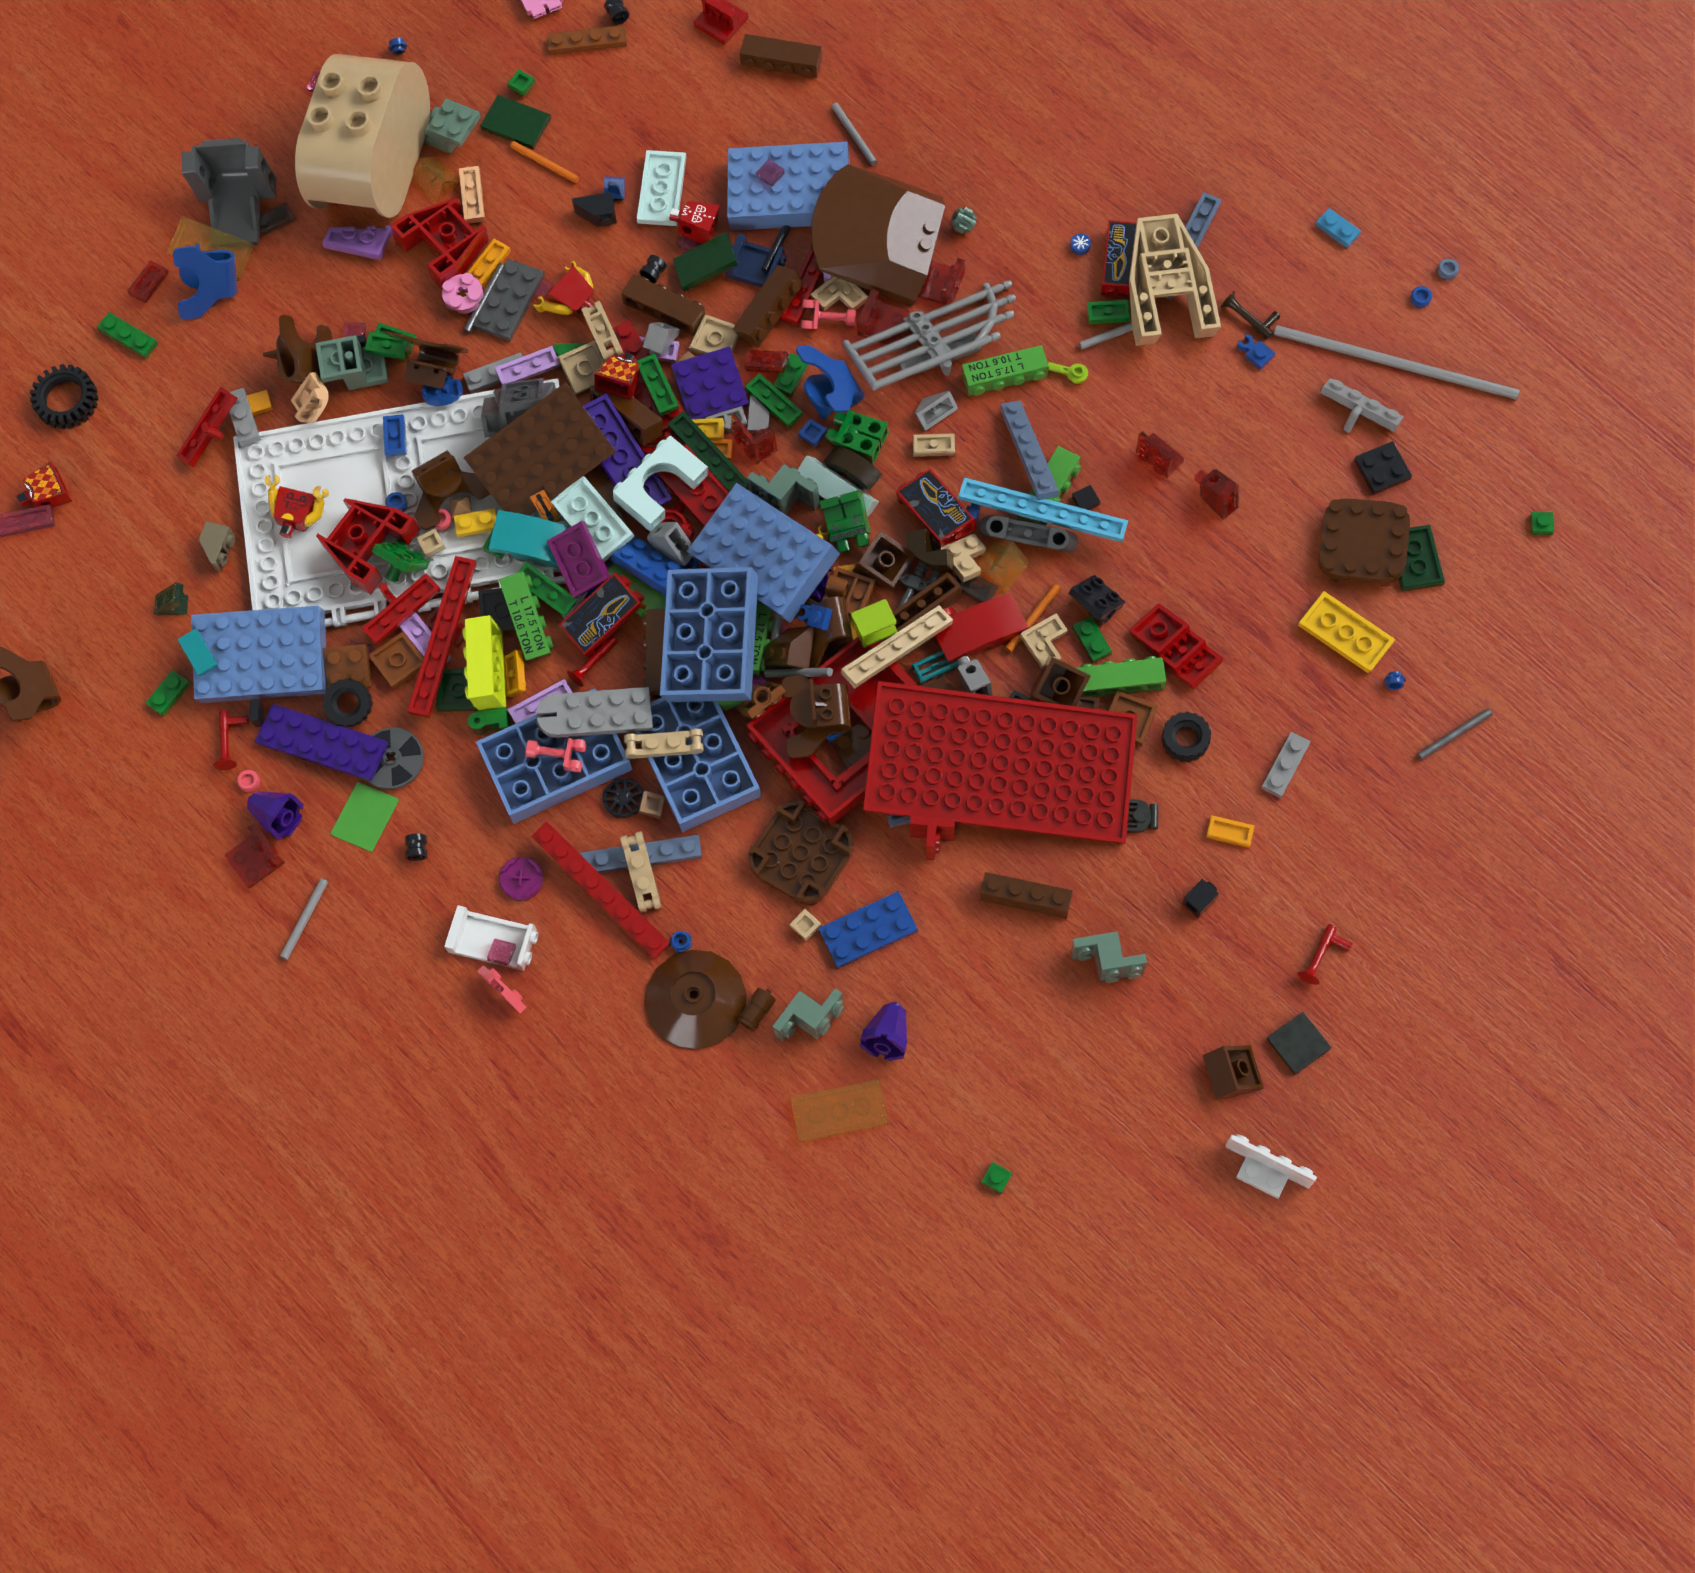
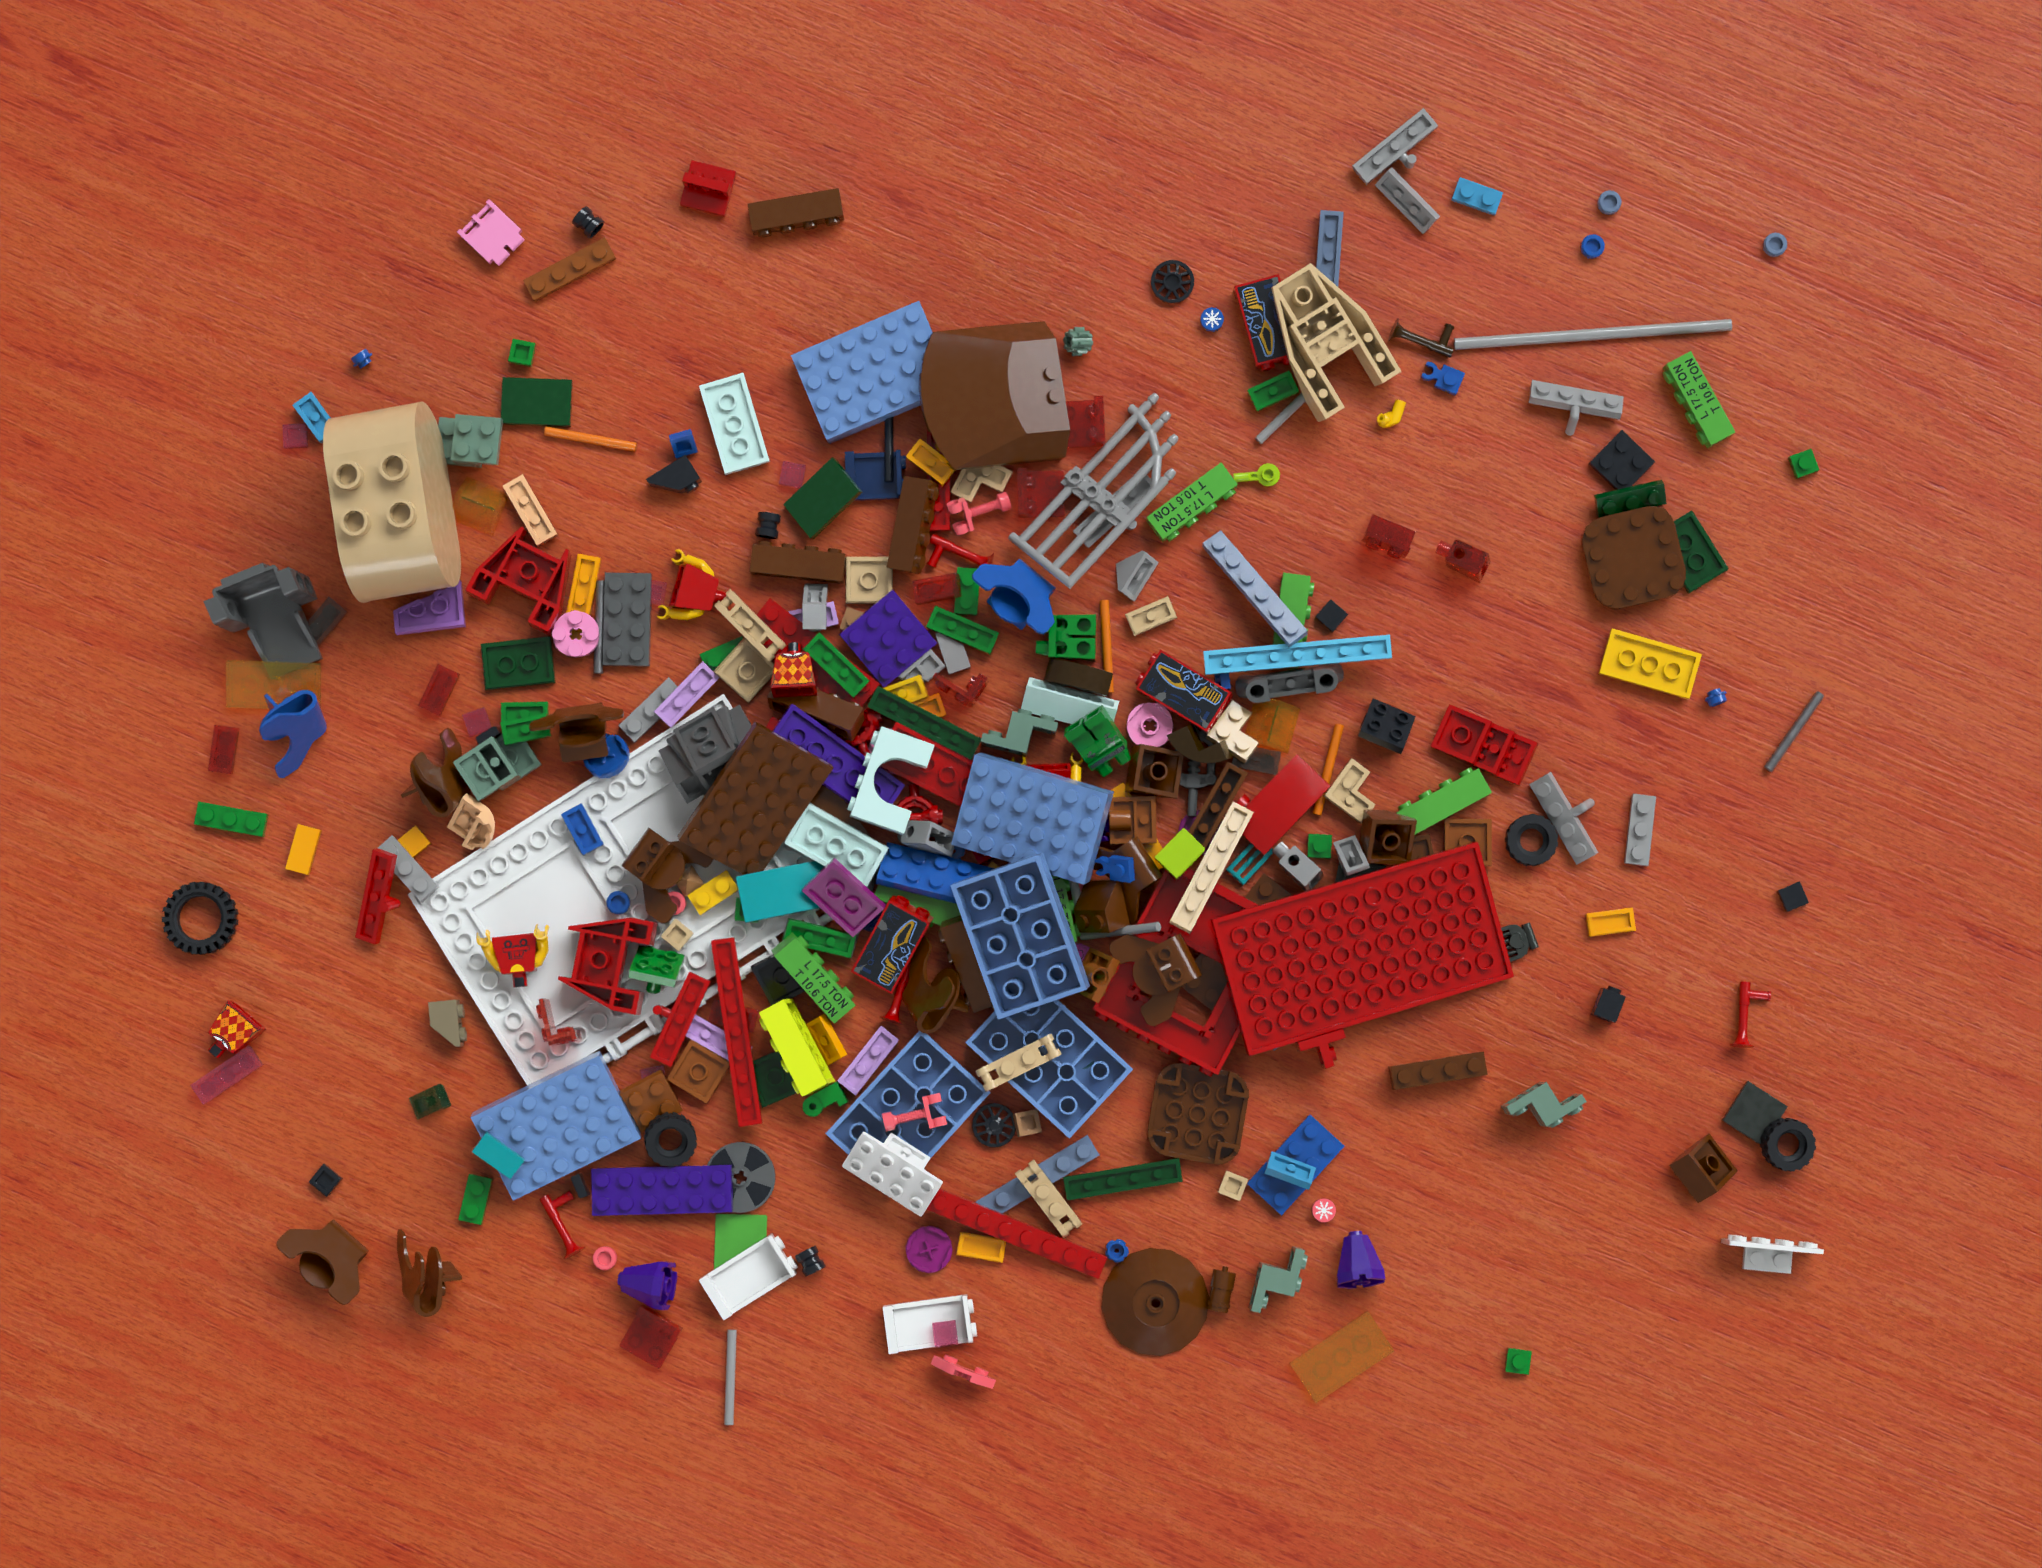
camera: 25 degrees left, 15 degrees up
(56, 632) = (325, 1180): none -> black tile
(100, 738) = (414, 1277): none -> reddish brown piece
(171, 377) = (303, 849): none -> light orange tile
(293, 576) = (549, 1033): none -> clear red bracket
(335, 297) = (439, 690): none -> clear red plate
(358, 840) = (748, 1275): none -> white panel
(407, 302) = (518, 663): none -> dark green tile
(517, 789) = (894, 1170): none -> white bracket
(545, 506) = (781, 852): orange sticker -> none
(566, 894) = (981, 1247): none -> light orange tile
(595, 712) = (937, 1058): light grey plate -> none
(613, 656) = (931, 1002): none -> reddish brown piece
(696, 220) = (792, 453): red torso -> none
(712, 882) = (1123, 1179): none -> dark green plate
(770, 172) = (852, 372): clear pink tile -> none
(786, 331) = (944, 544): none -> red piece
(804, 264) = (930, 461): none -> light orange plate
(812, 433) = (1018, 651): blue plate -> none
(854, 134) = (914, 276): light grey bar -> none
(859, 926) = (1290, 1170): none -> dark azure plate
(876, 977) = (1323, 1210): none -> coral tile
(888, 454) = (1106, 639): none -> orange bar
(896, 517) = (1149, 712): none -> bright pink plate
(1000, 675) = (1319, 846): none -> green plate
(1022, 687) = (1350, 856): none -> light grey slope
(1060, 206) = (1172, 281): none -> black wheel
(1092, 640) = (1397, 770): green plate -> none
(1200, 366) = (1393, 417): none -> yellow arm
(1223, 729) = (1565, 817): none -> light grey plate
(1278, 209) = (1407, 200): none -> light grey plate
(1284, 169) = (1395, 147): none -> light grey plate
(1335, 1072) = (1800, 1157): none -> black tyre
(1380, 493) = (1630, 498): none -> dark green plate
(1402, 870) = (1792, 896): none -> black tile
(1467, 440) = (1698, 400): none -> bright green brick
(1578, 347) = (1775, 244): none -> sand blue tile

